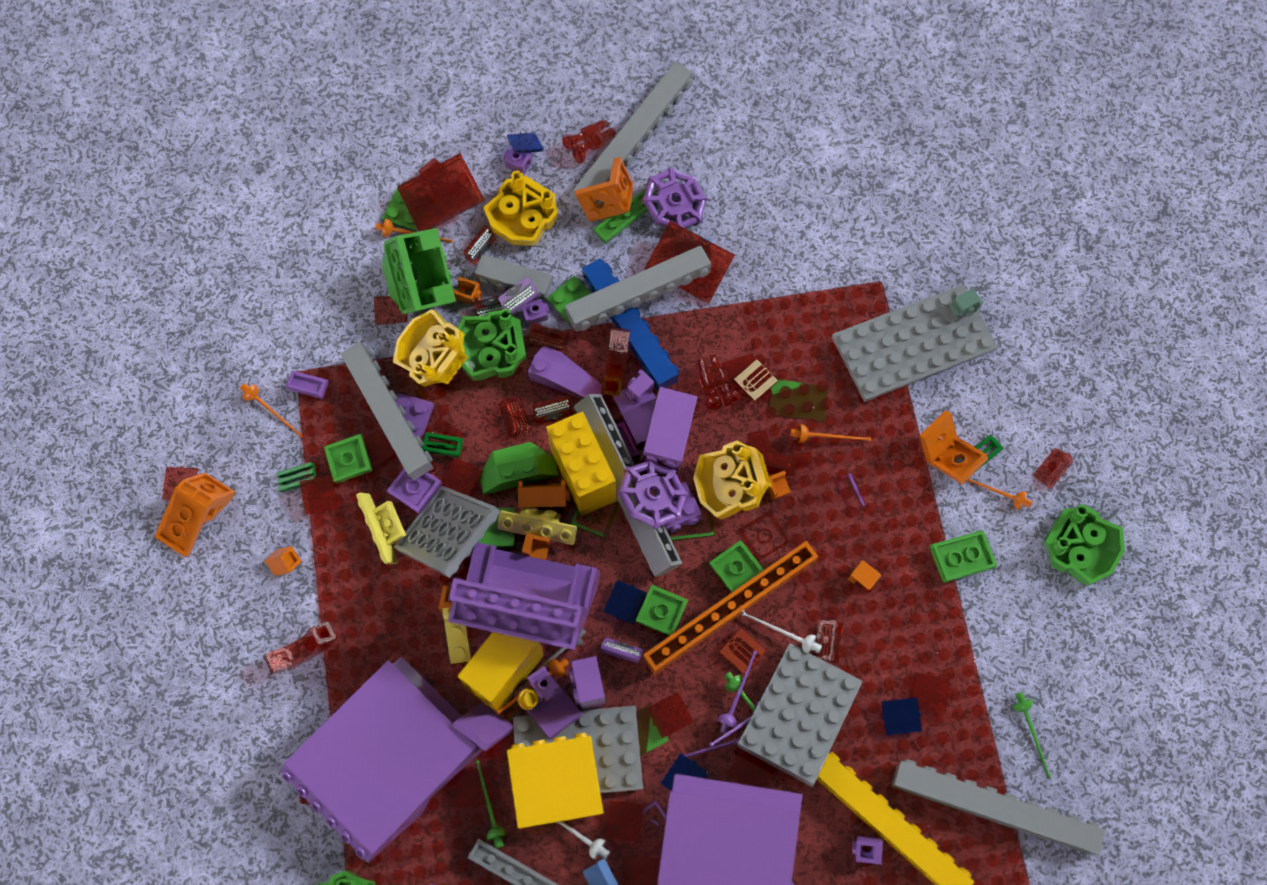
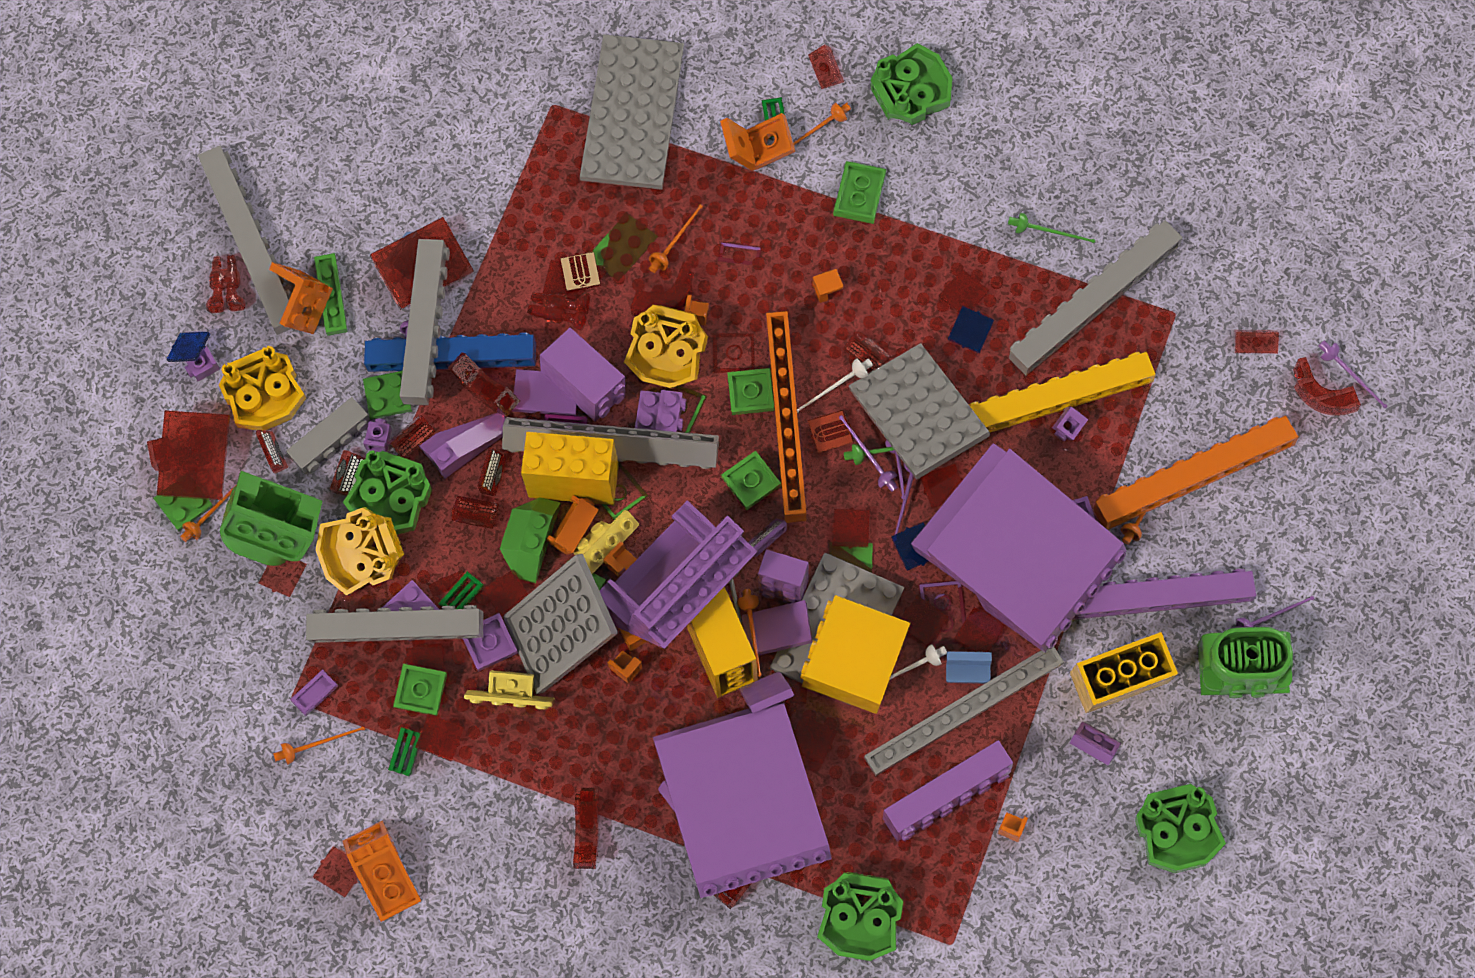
camera: 55 degrees left, 0 degrees up
(283, 561) = (484, 807): orange panel -> none
(457, 640) = (662, 675): light yellow plate -> none
(465, 284) = (310, 481): orange window -> none
(495, 833) = (868, 737): bright green sword -> none
(518, 295) = (355, 438): slope -> none
(527, 699) = (764, 640): yellow plate -> none
(542, 692) = (758, 626): medium lavender brick -> none
(625, 602) = (720, 505): clear blue piece -> none
(639, 387) = (522, 377): medium lavender brick -> none
(645, 500) = (638, 406): medium lavender plate -> none
(667, 205) = (339, 248): medium lavender plate -> none
(966, 303) = (627, 42): sand green brick -> none

